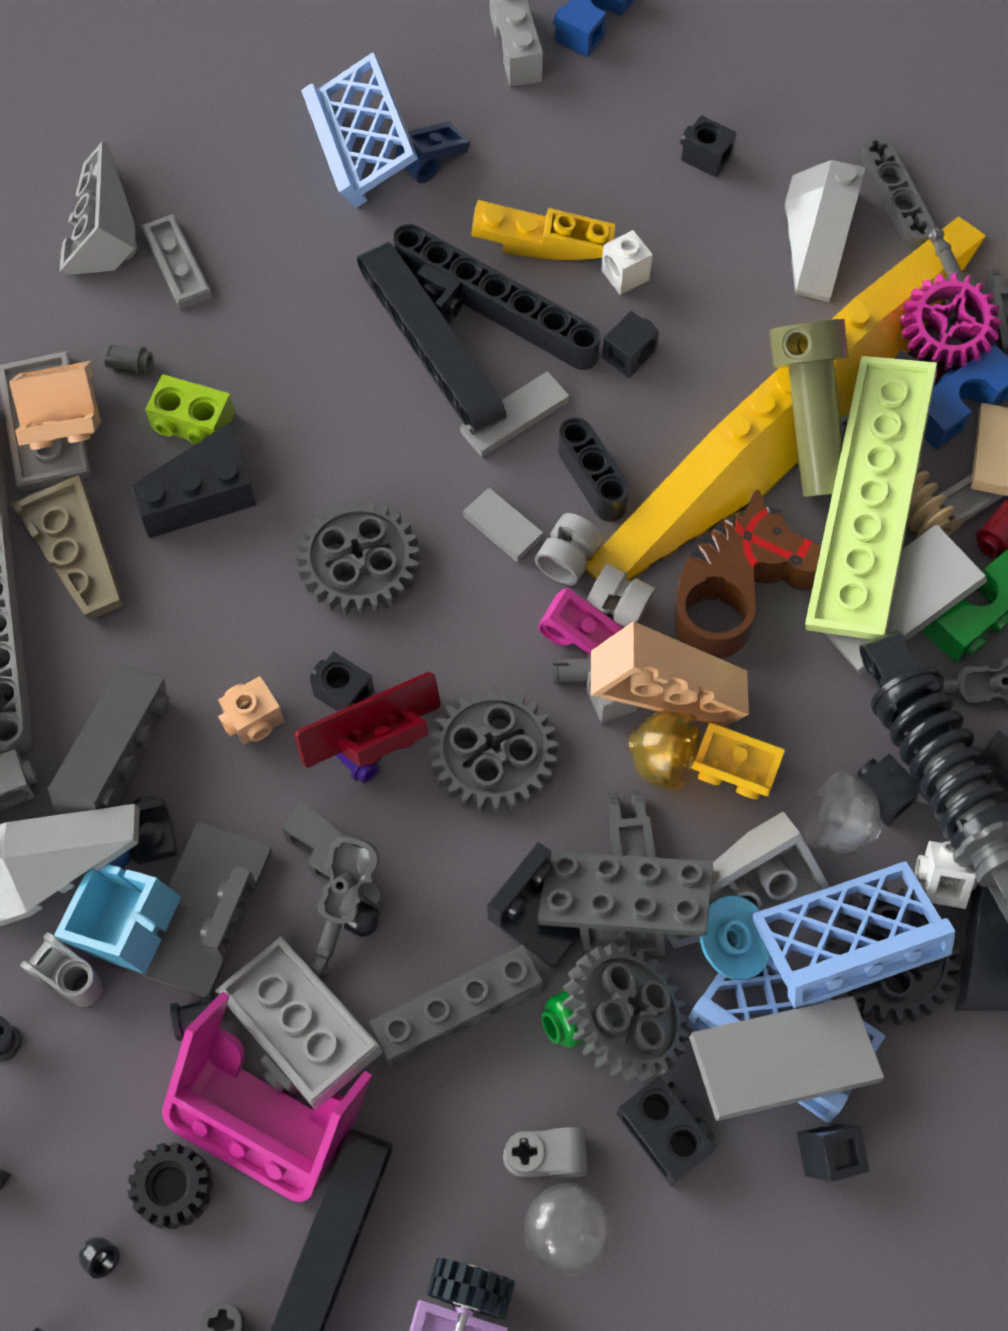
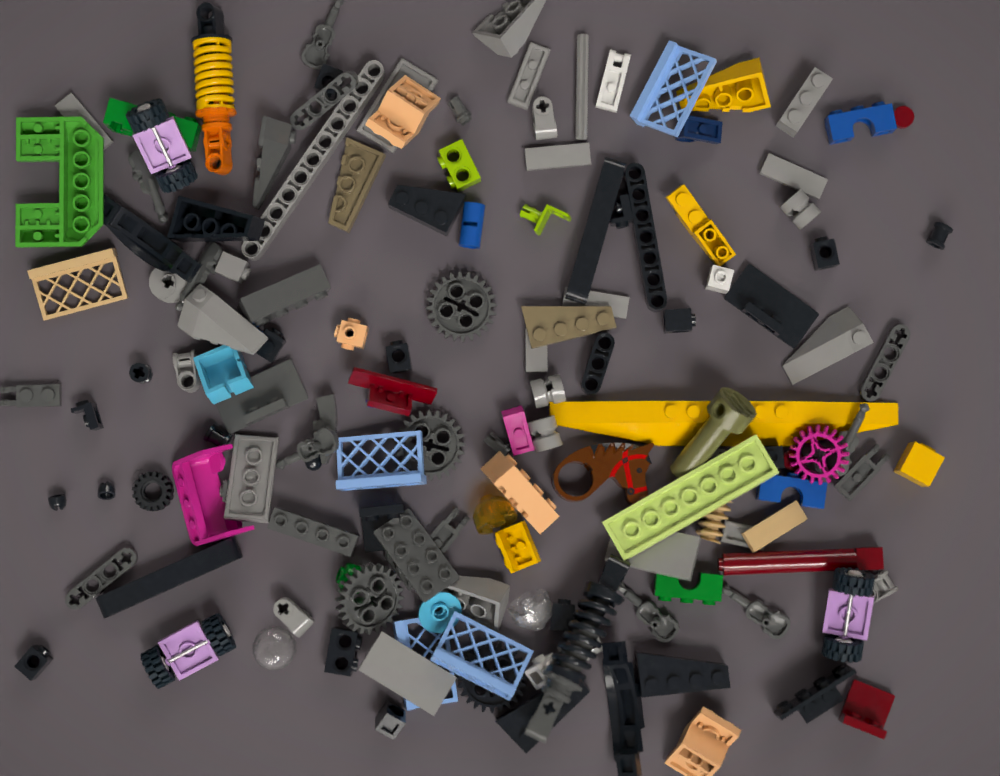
camera: 50 degrees right, 20 degrees up
(241, 281) = (543, 122): none -> light grey piece
(252, 220) = (582, 86): none -> light grey axle
(274, 459) = (472, 225): none -> blue pin
(282, 185) = (613, 81): none -> white plate
(300, 309) = (557, 156): none -> light grey tile
(349, 382) = (541, 218): none -> lime bracket
(430, 78) = (733, 88): none -> yellow wedge
(482, 840) = (377, 479): none -> light blue fence
(501, 464) = (562, 323): none -> dark tan wing
(586, 110) = (793, 176): none -> light grey tile
(644, 125) = (800, 209): none -> light grey wheel
(714, 243) = (771, 306): none -> black bracket
(804, 38) = (939, 235): none -> black bush

